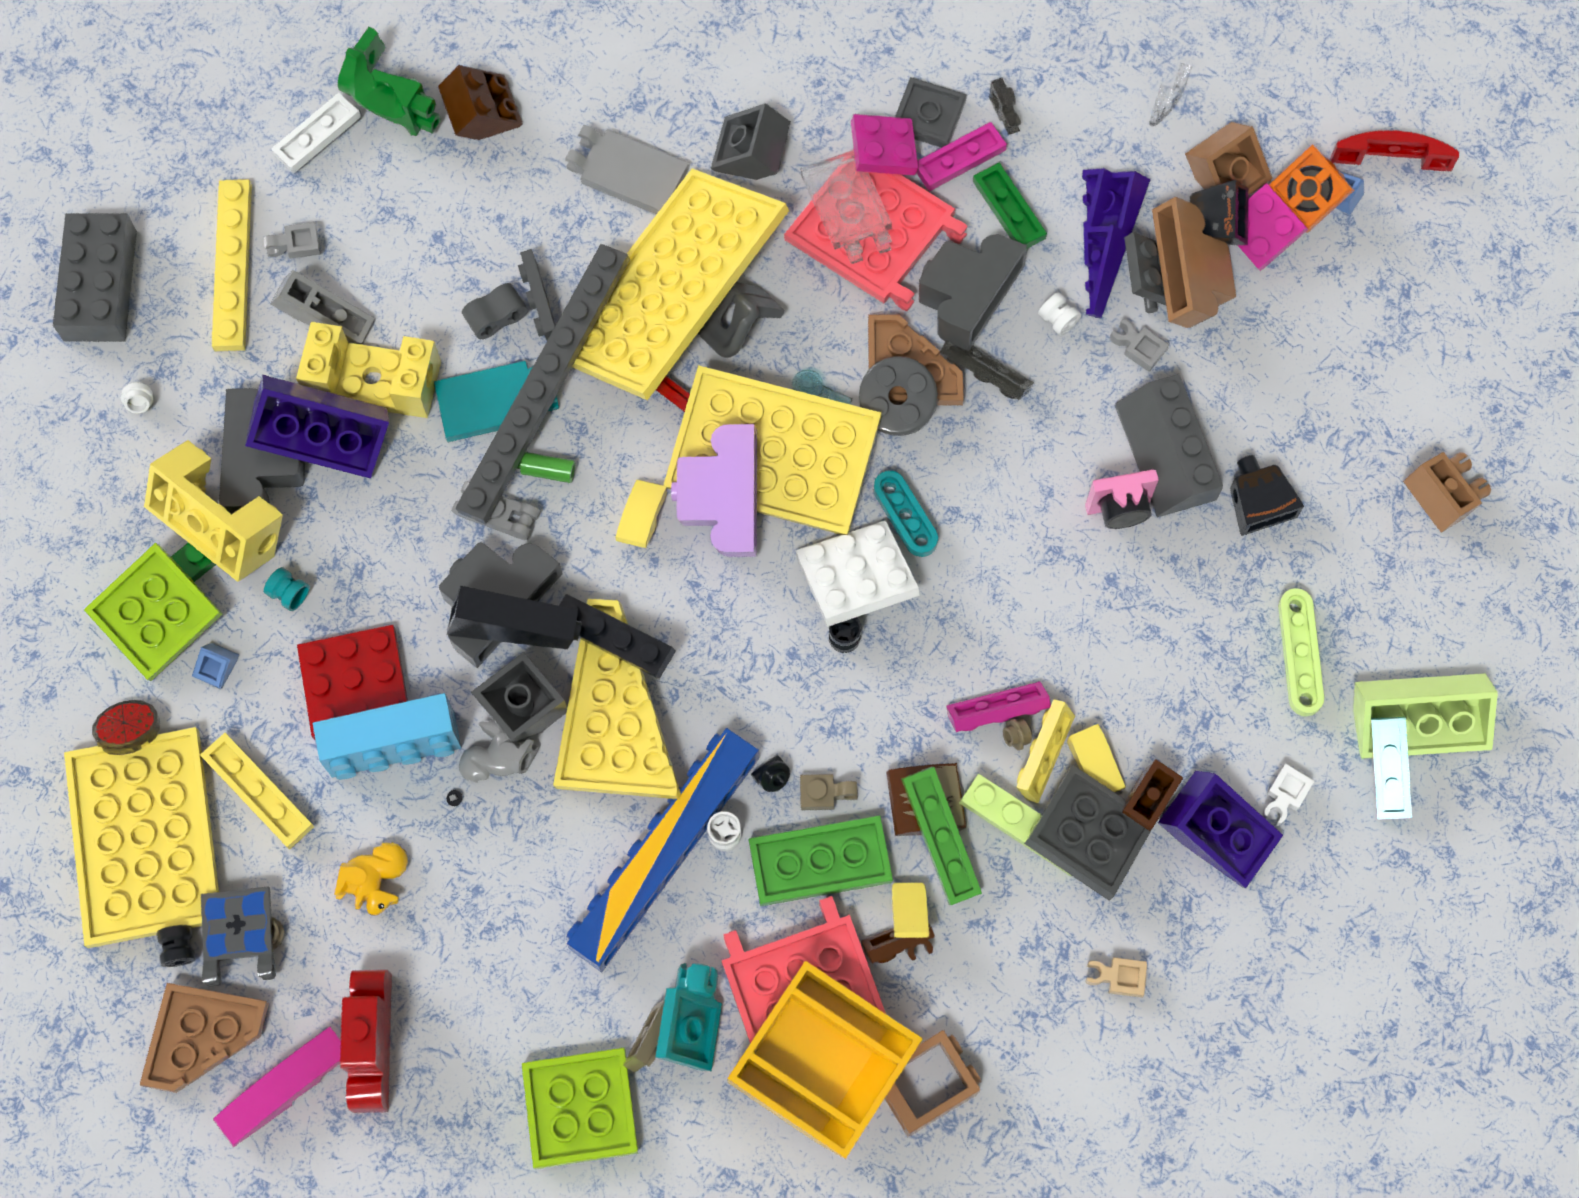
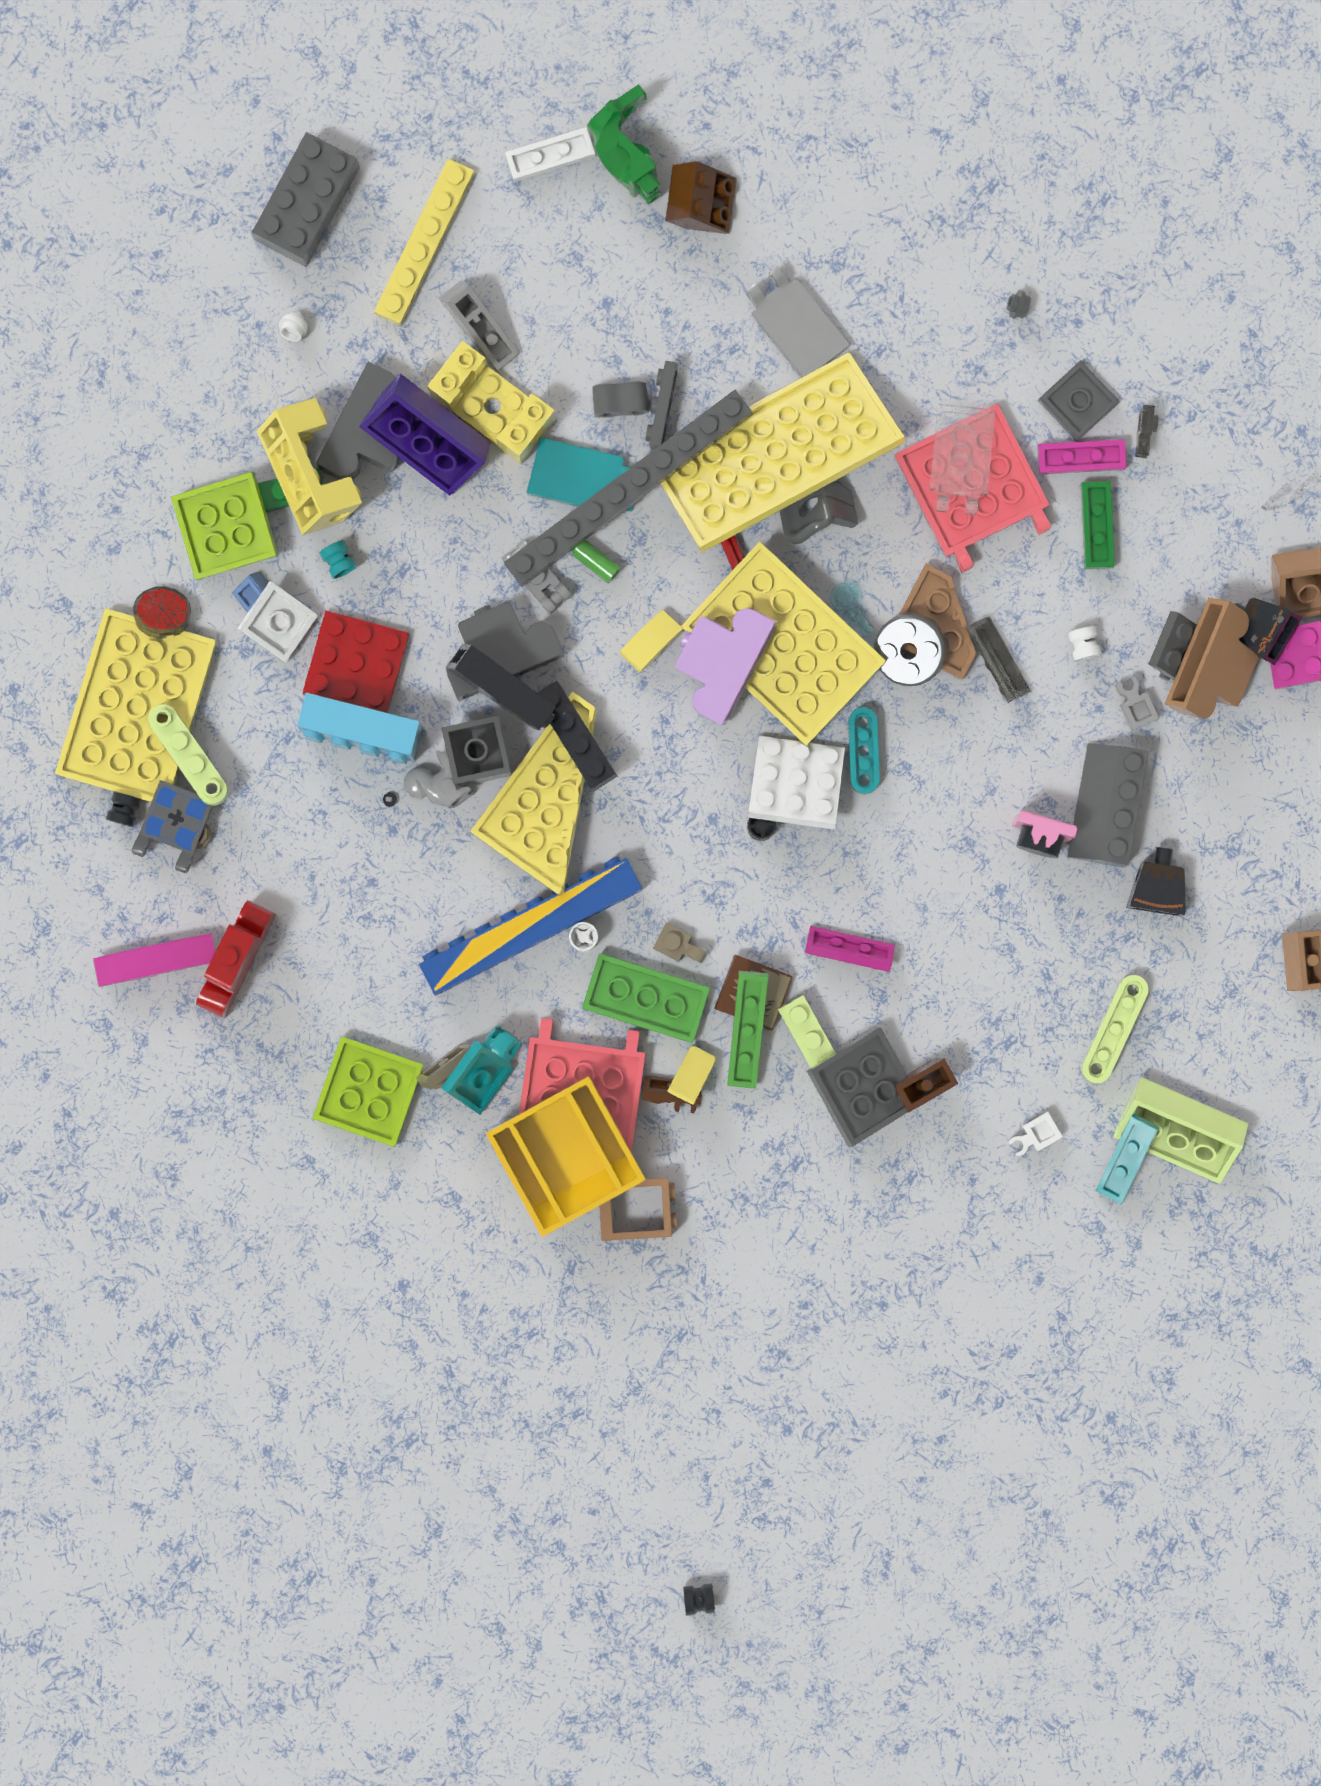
camera: 25 degrees right, 15 degrees up
(197, 1033) = (110, 886): medium nougat plate -> none
(219, 853) = (188, 755): none -> yellowish green plate
(252, 677) = (277, 621): none -> white plate
(257, 791) = (240, 716): light yellow plate -> none
(298, 240) = (489, 249): light grey plate -> none
(364, 876) = (292, 826): yellow animal -> none
(751, 143) = (911, 354): dark grey slope -> none
(772, 775) = (644, 910): black plate -> none
(826, 57) = (1018, 304): none -> dark grey plate
(884, 144) = (1020, 417): dark pink plate -> none
(969, 285) = (1022, 582): dark grey brick -> none
(1017, 733) = (852, 978): dark tan plate -> none
(1045, 751) = (866, 1003): light yellow plate -> none
(1095, 757) = (903, 1030): light yellow slope -> none
(1112, 210) = (1182, 573): dark purple wedge -> none
(1124, 976) = (828, 1208): tan plate -> none
(1220, 827) = (968, 1134): dark purple slope -> none

